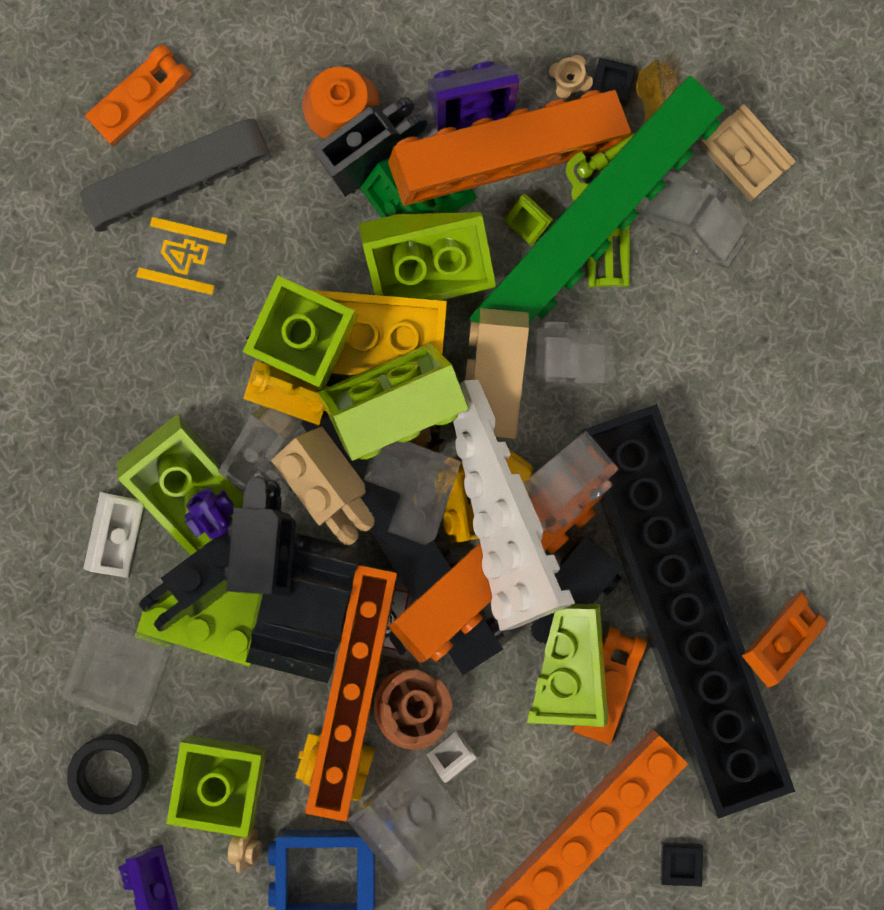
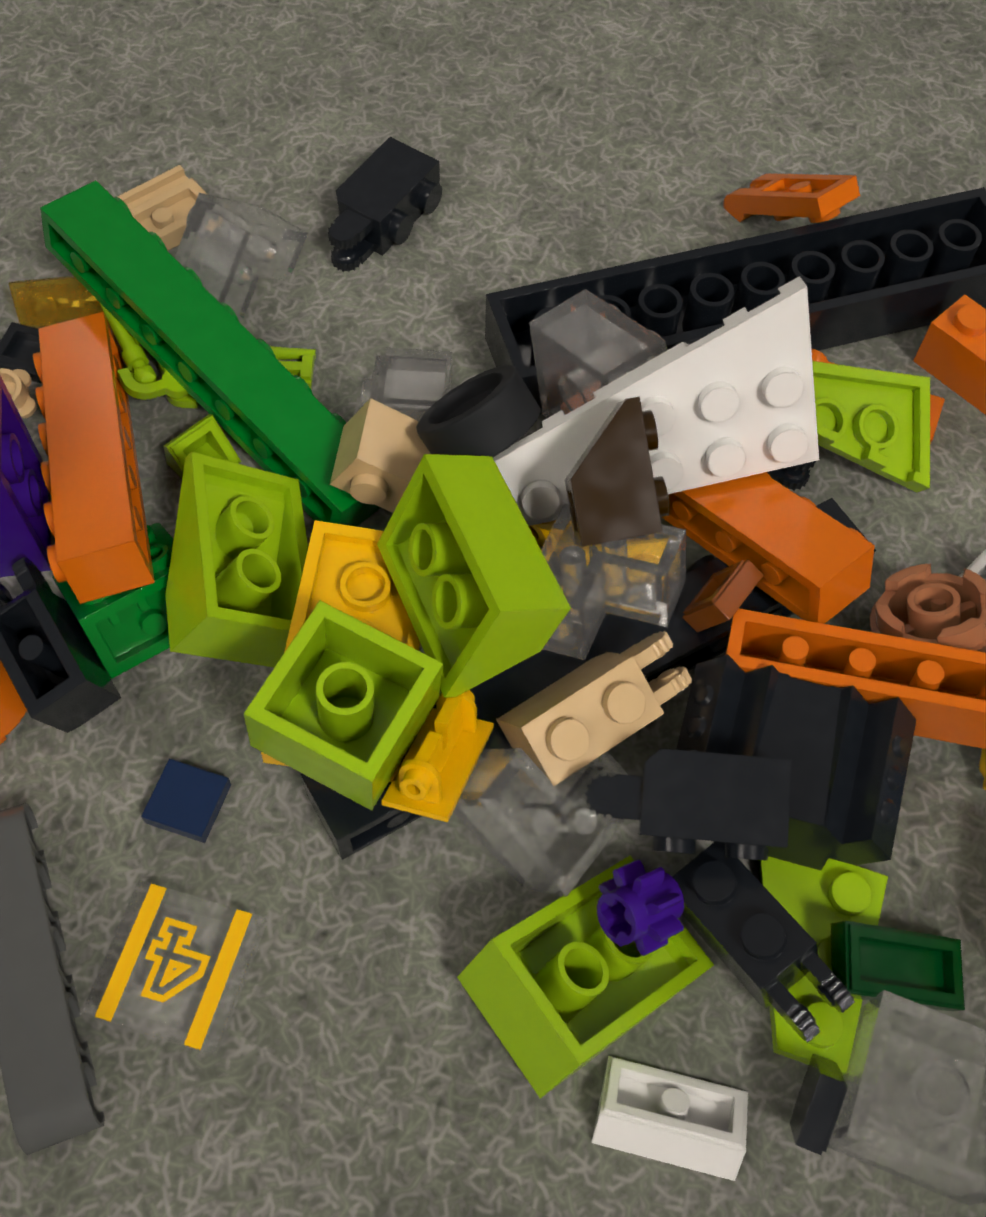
camera: 90 degrees left, 25 degrees down
(115, 612) = (818, 1105): none -> black tile
(192, 664) = (900, 962): none -> dark green tile
(281, 247) = (186, 800): none -> dark blue tile
(409, 566) = (722, 595): none -> dark orange tile
(445, 486) = (613, 480): none -> dark brown slope
(500, 414) = (480, 415): none -> black tyre
(769, 321) = (383, 203): none -> black hinge

